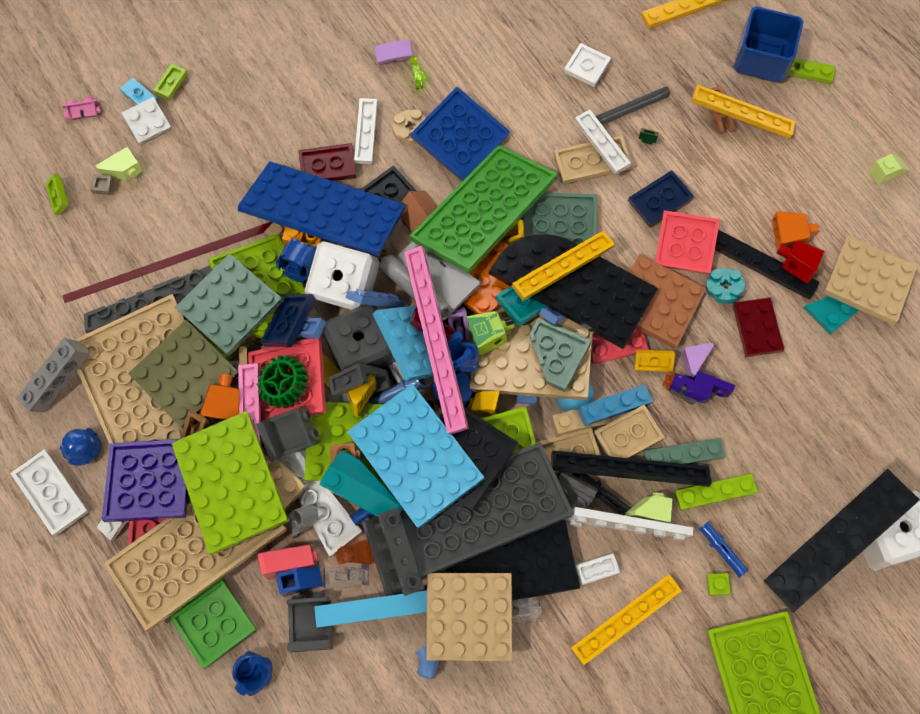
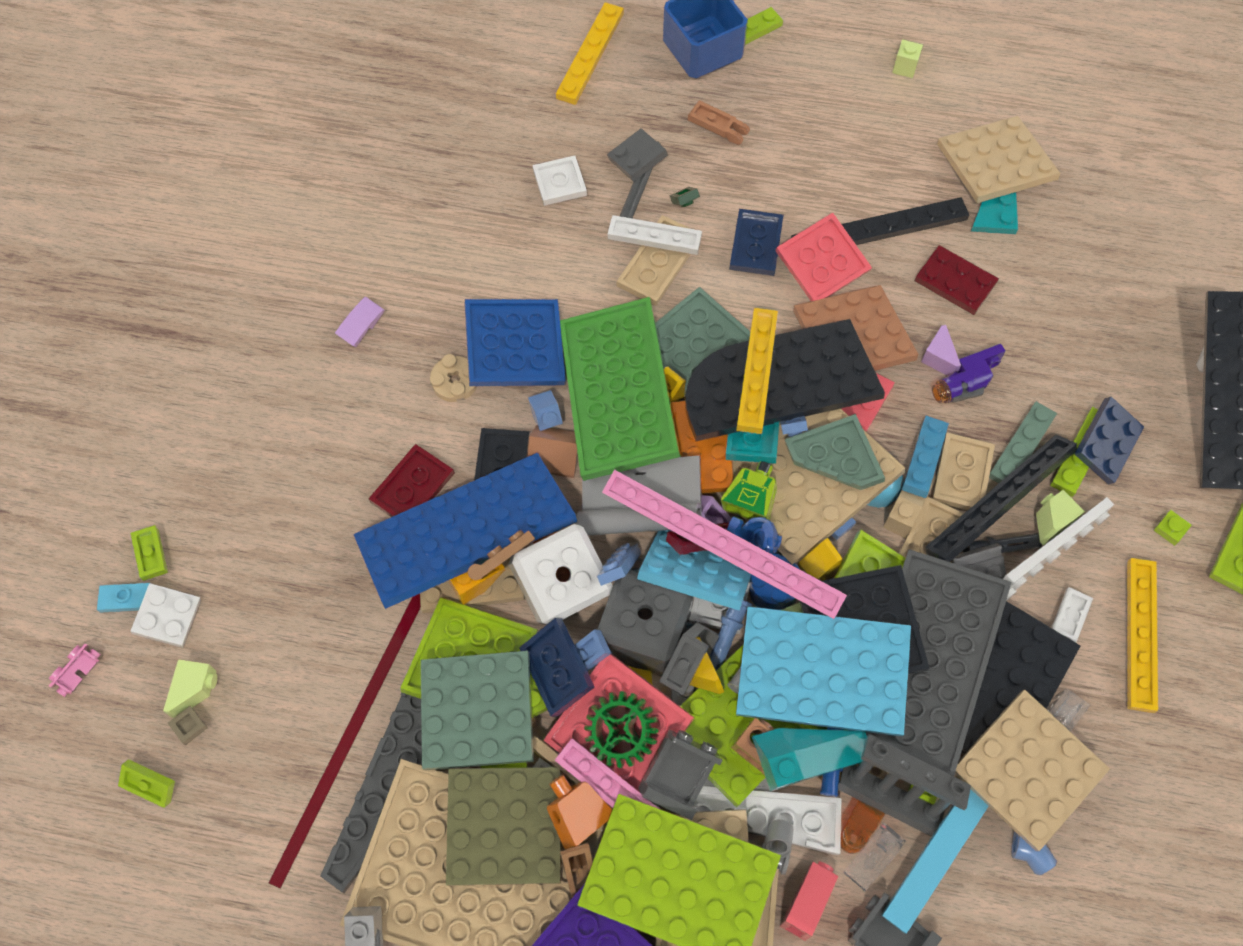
camera: 45 degrees left, 5 degrees down
(296, 260) = (498, 601): blue brick -> none
(299, 580) = (840, 908): blue slope -> none
(317, 236) = (499, 555): none -> medium nougat plate
(365, 131) = (415, 420): white plate -> none
(418, 75) = (408, 323): clear neon green plate -> none
(435, 186) = (545, 410): none -> medium blue brick
(647, 87) = (637, 154): none -> dark grey plate
(654, 360) = (910, 387): yellow plate -> none
(723, 549) = (1145, 493): blue pin -> none
(727, 276) = (889, 257): teal plate -> none
(737, 500) = (1109, 440): none -> dark blue plate
(743, 111) = (742, 106): yellow plate -> none
(792, 227) = (892, 172): orange torso -> none
(801, 259) = (931, 189): red torso -> none

